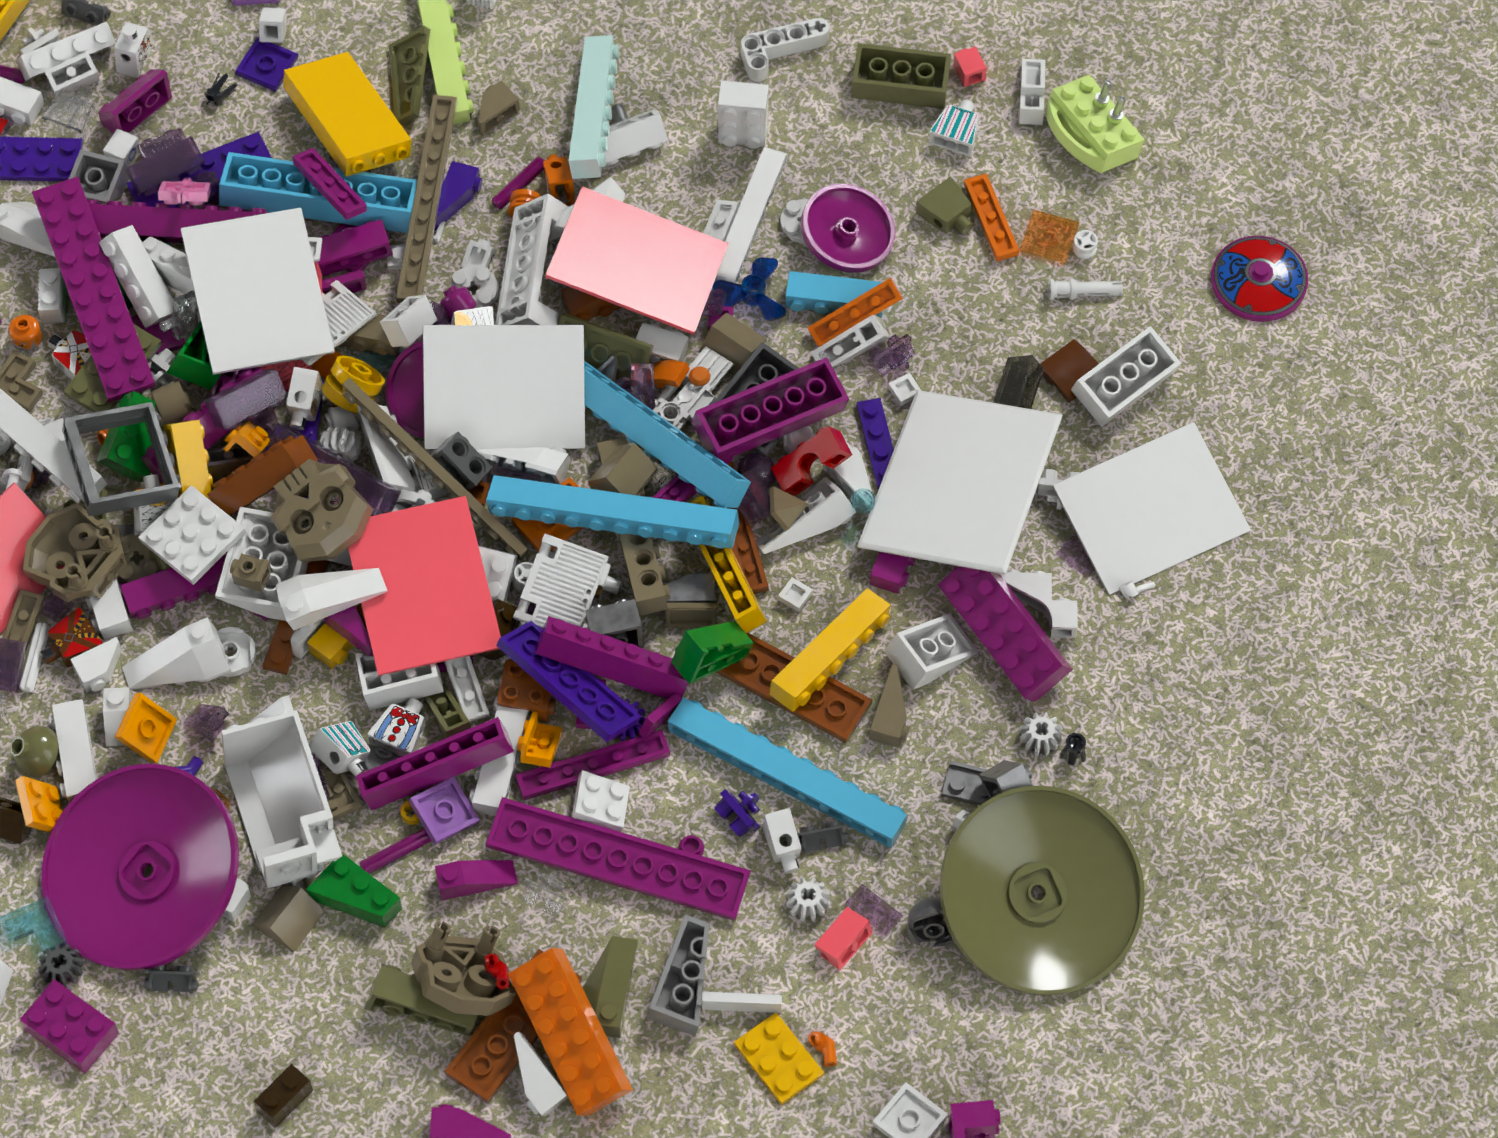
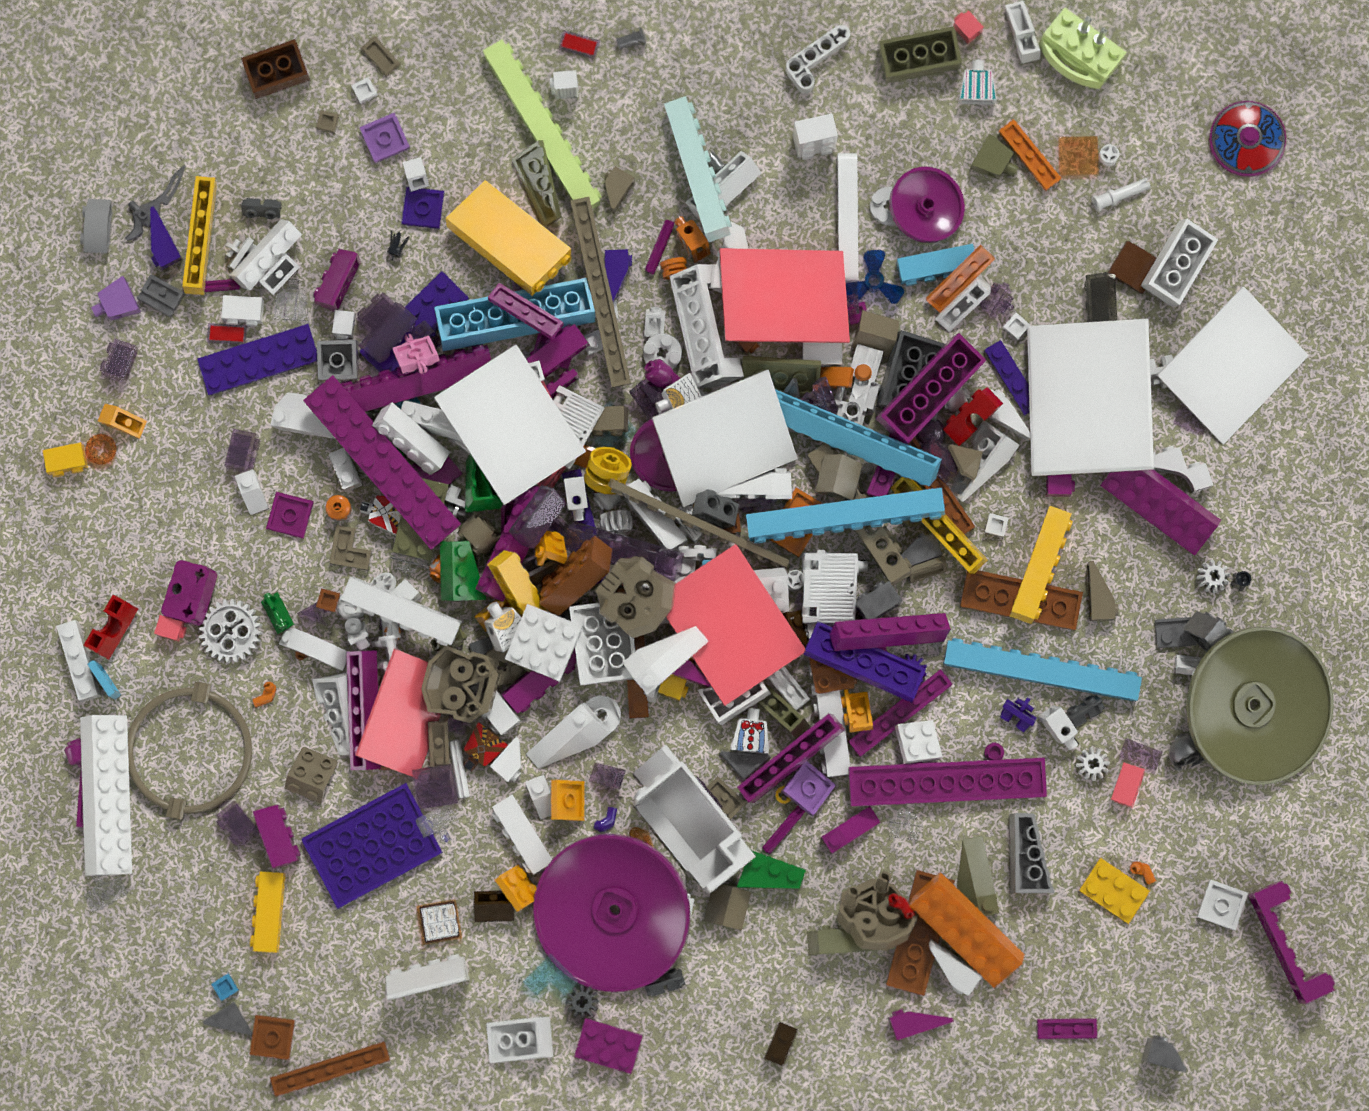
camera: 20 degrees left, 20 degrees up
(35, 750) = (495, 845): olive piece -> none
(114, 418) = (443, 622): dark grey window -> none
(133, 42) = (316, 234): white torso -> none
(184, 316) = (457, 457): clear plate -> none
(255, 577) = (606, 665): dark tan brick -> none
(341, 748) = (718, 767): white torso -> none
(407, 321) = (632, 407): white brick -> none
(659, 715) = (936, 660): magenta tile -> none
(710, 650) = (958, 601): green wedge -> none
(721, 219) = (827, 230): white plate -> none
(742, 1002) = (1075, 859): white tile -> none
(863, 501) = (1022, 436): clear light blue plate -> none
(929, 650) = (1111, 537): white slope -> none
(1129, 589) = (1237, 436): white hand -> none

